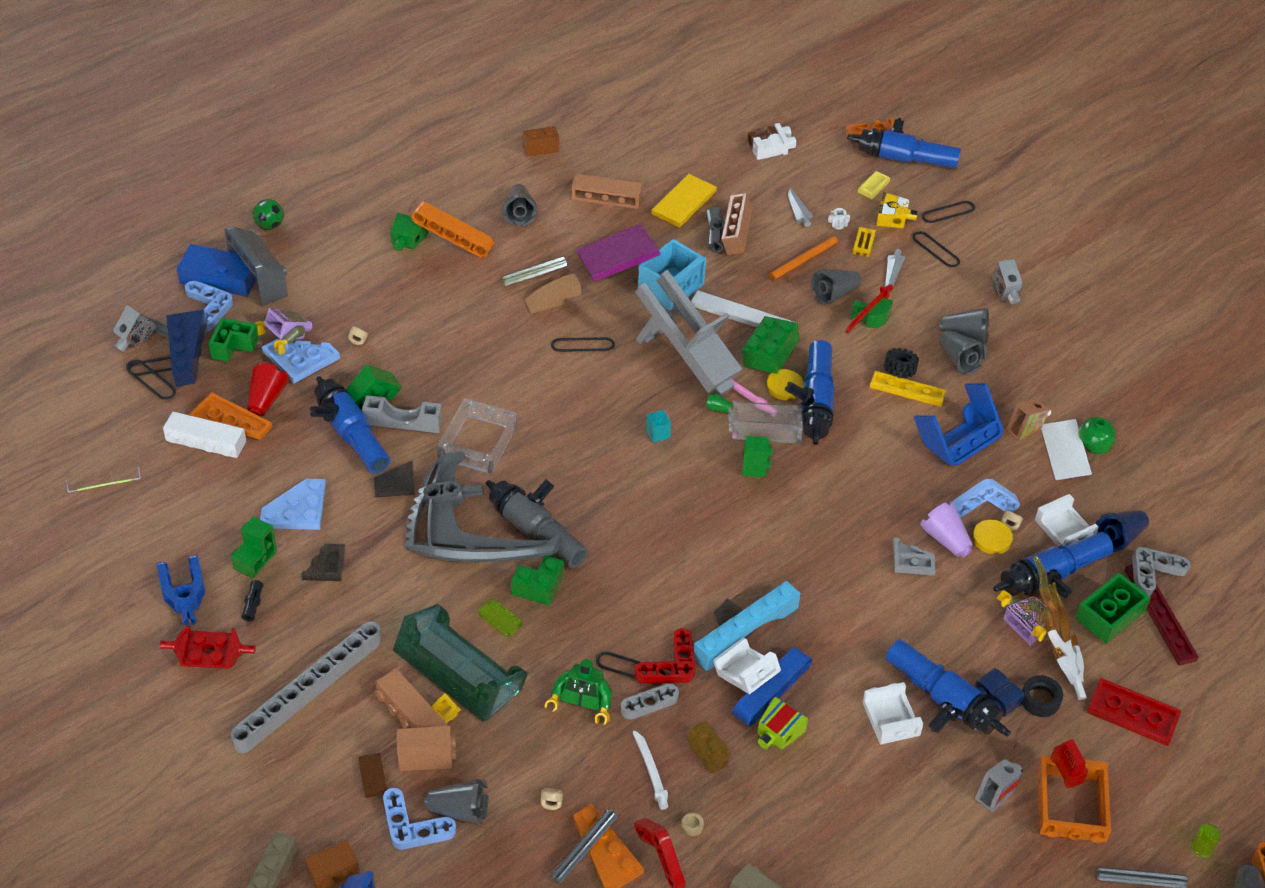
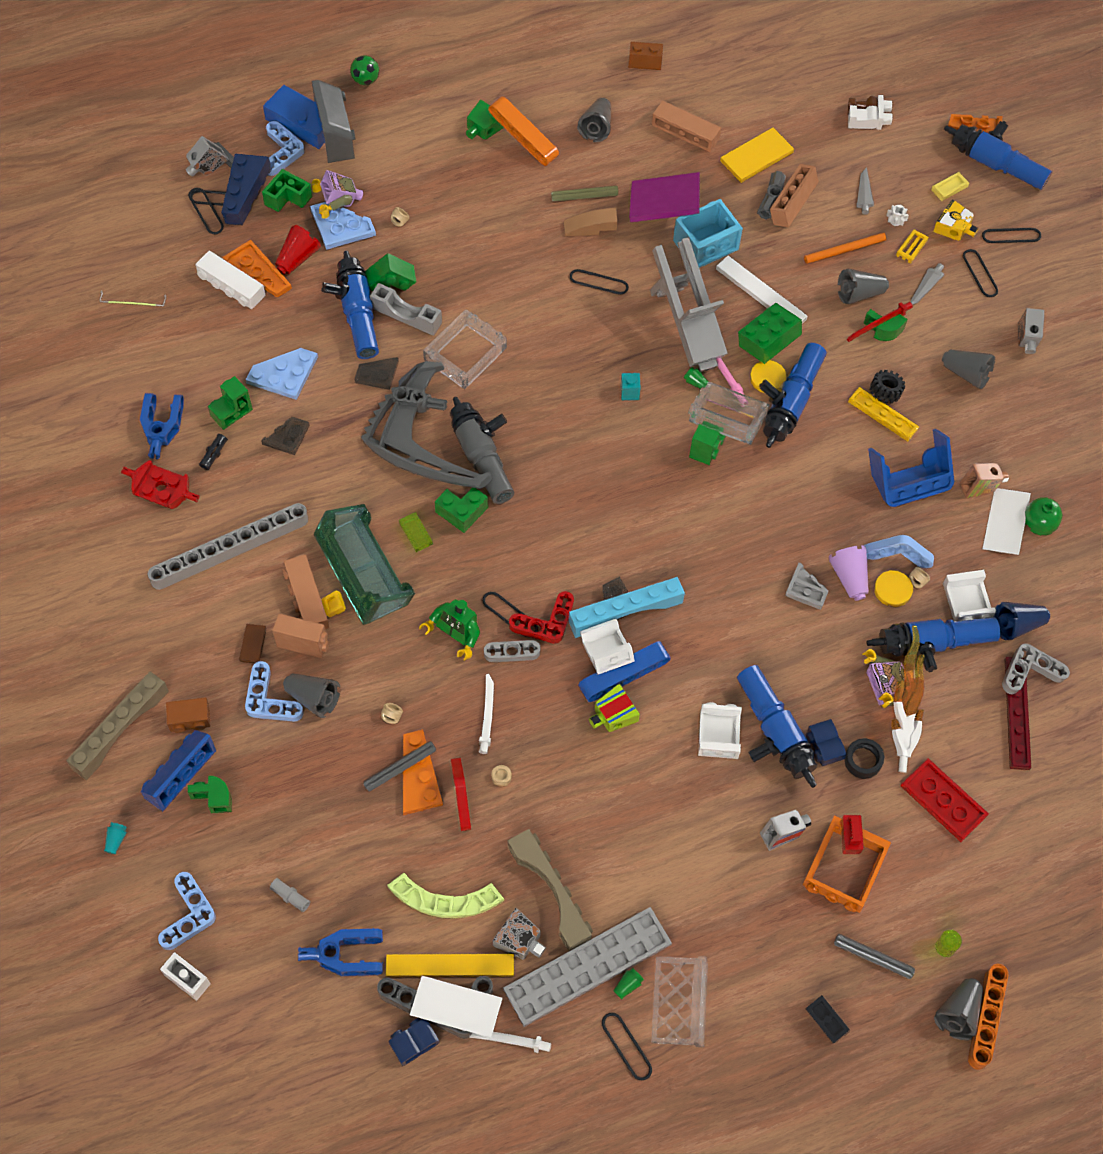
camera: 20 degrees right, 15 degrees up
(708, 747) = (543, 710): pearl gold brick -> none
(963, 351) = (952, 392): dark grey cone -> none
(1112, 608) = (970, 695): green brick -> none

